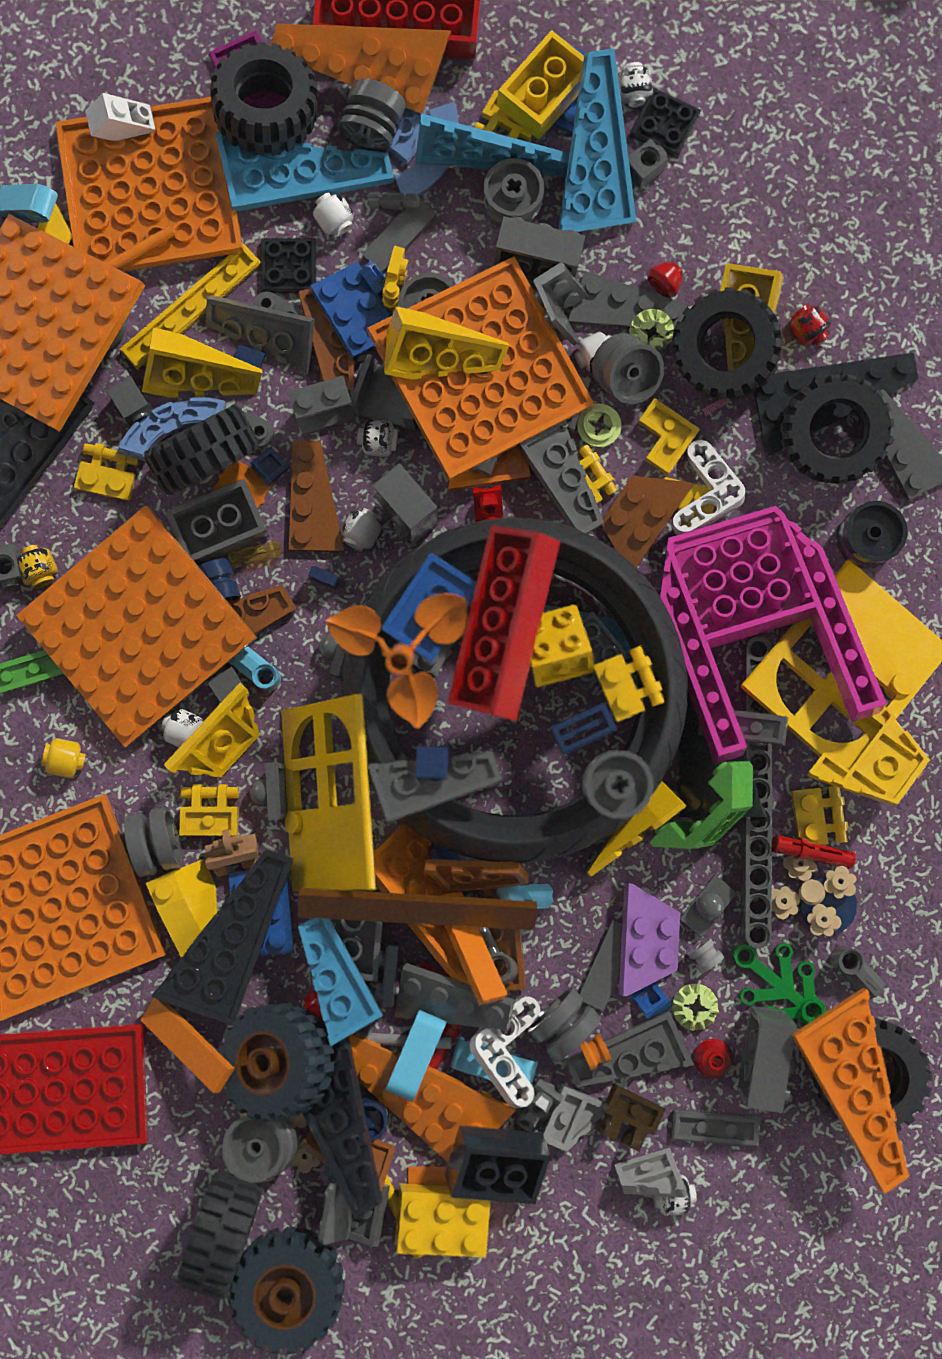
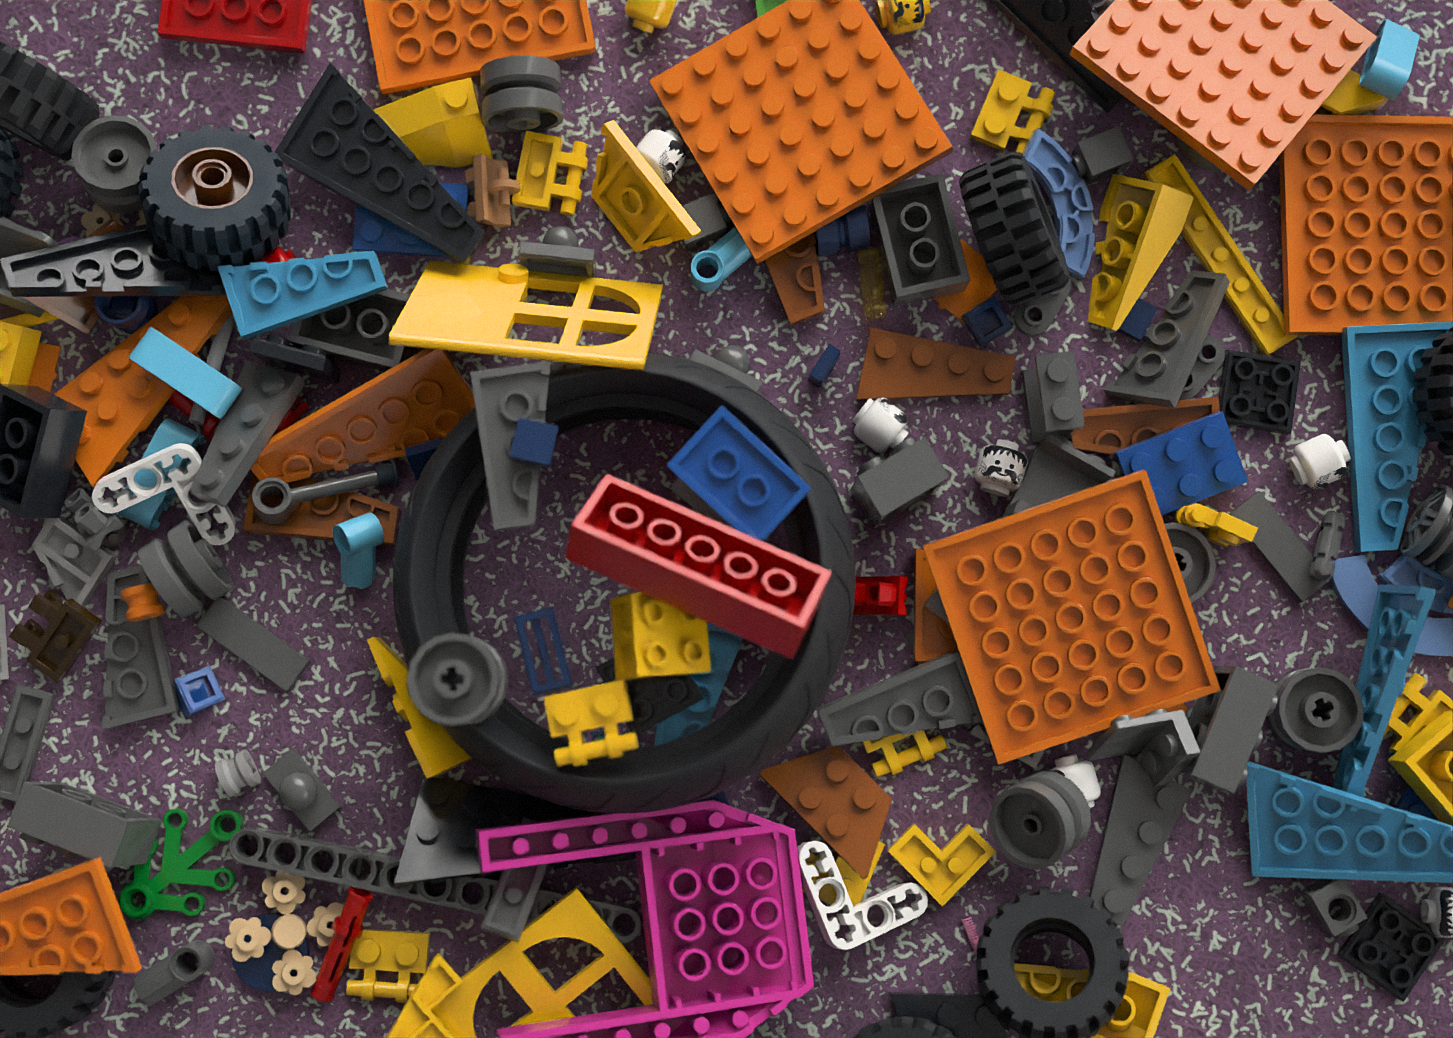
camera: 110 degrees right, 0 degrees up
(141, 248) = (1305, 196): orange bar -> none
(187, 1044) = (259, 97): orange tile -> none
(373, 276) = (1225, 497): blue tile -> none
(410, 695) = (628, 432): orange plant -> none
(416, 909) = (362, 404): reddish brown tile -> none
(429, 345) = (1107, 551): yellow wedge -> none
(475, 875) = (393, 487): dark orange wing -> none
(476, 961) = (303, 463): orange tile -> none
(611, 421) = (975, 787): yellowish green gear -> none
(646, 320) = (1105, 859): yellowish green gear -> none
(647, 940) = (272, 700): medium lavender wing -> none
(666, 278) = (1163, 901): red cone -> none
(687, 996) = (192, 739): yellowish green gear -> none
(706, 1055) = (107, 758): red cone -> none
(735, 785) = (430, 846): bright green slope -> none

